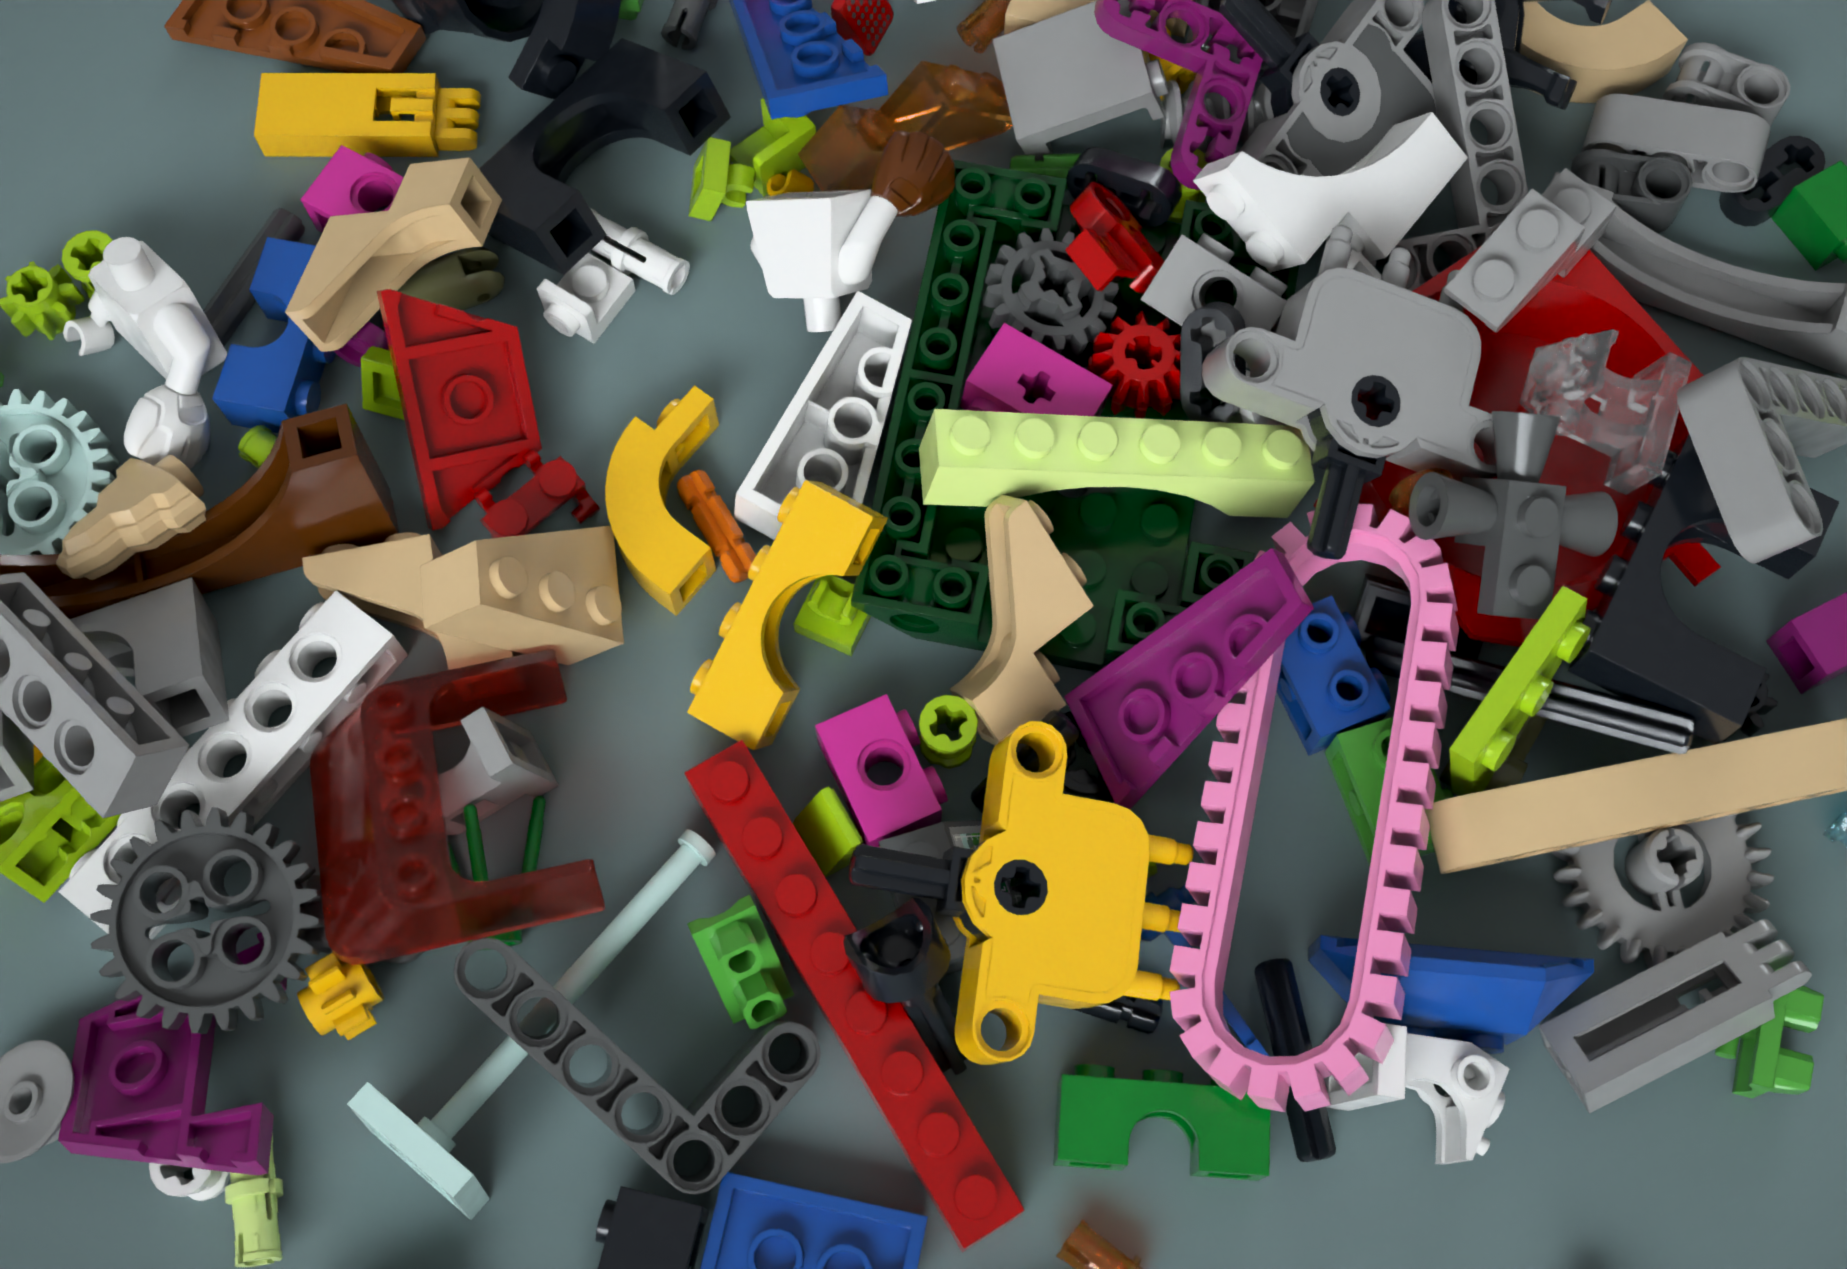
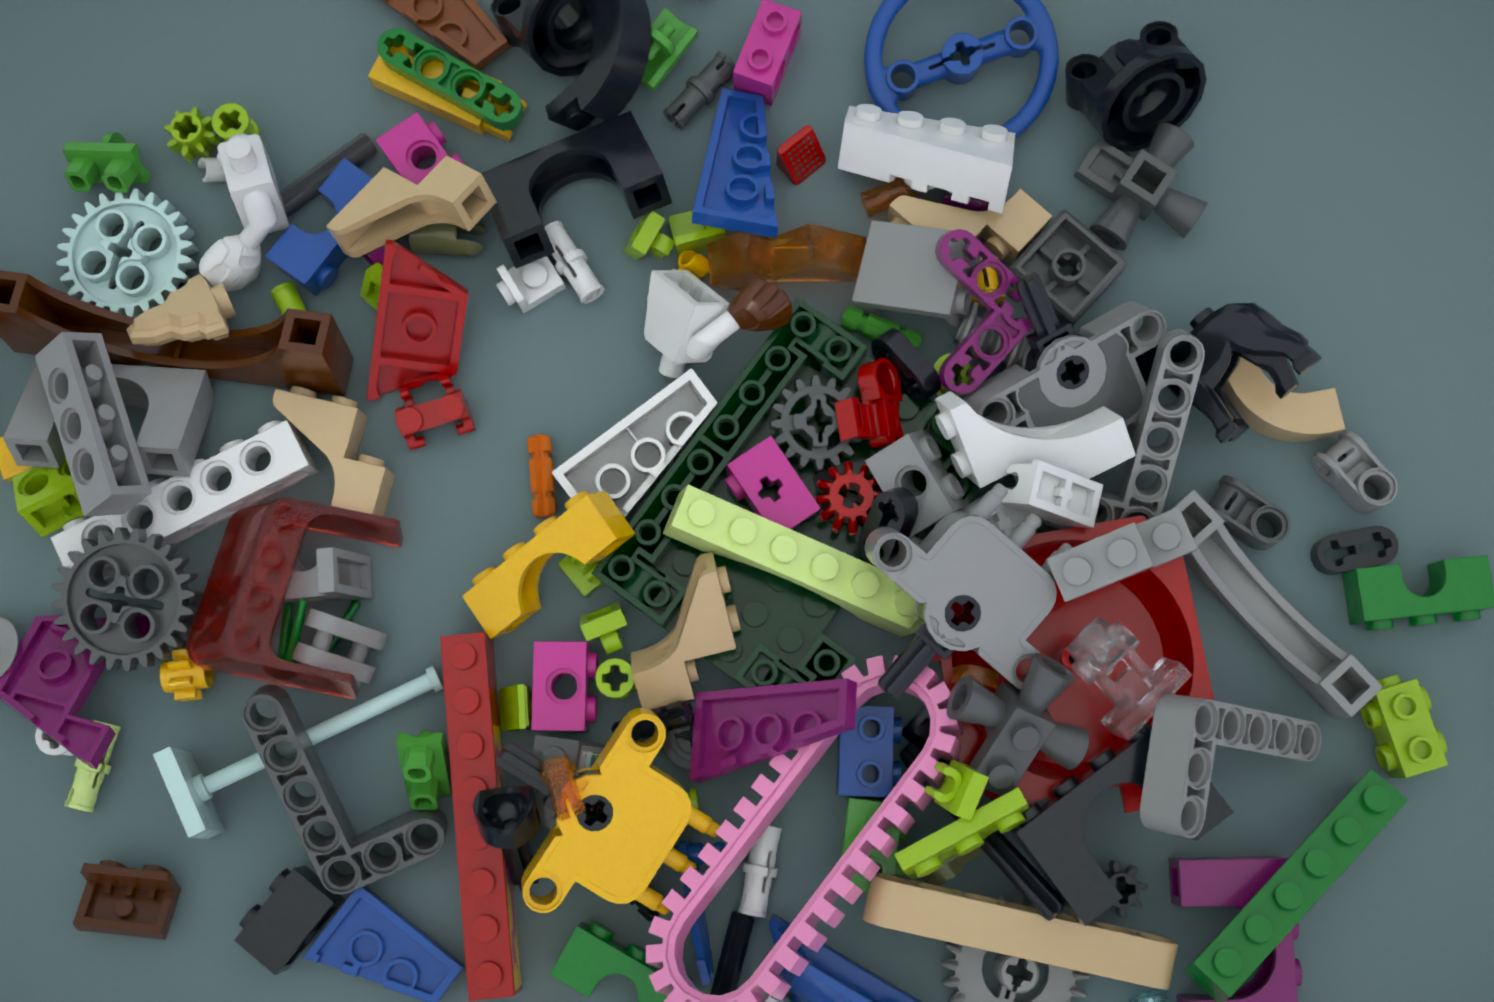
camera: 30 degrees right, 10 degrees up
(371, 83) = (448, 82): none -> green beam
(529, 593) = (400, 479): tan wedge -> none
(546, 828) = (328, 626): none -> light grey brick
(655, 547) = (497, 441): yellow arch -> none
(897, 671) = (604, 624): none -> lime tile
(956, 856) = (560, 780): none -> clear orange pin
(1266, 901) = (759, 873): none -> white pin
(1400, 218) = (1054, 494): none -> white hinge
(1489, 624) = (959, 789): none -> lime tile
(1714, 143) = (1311, 505): light grey beam -> none

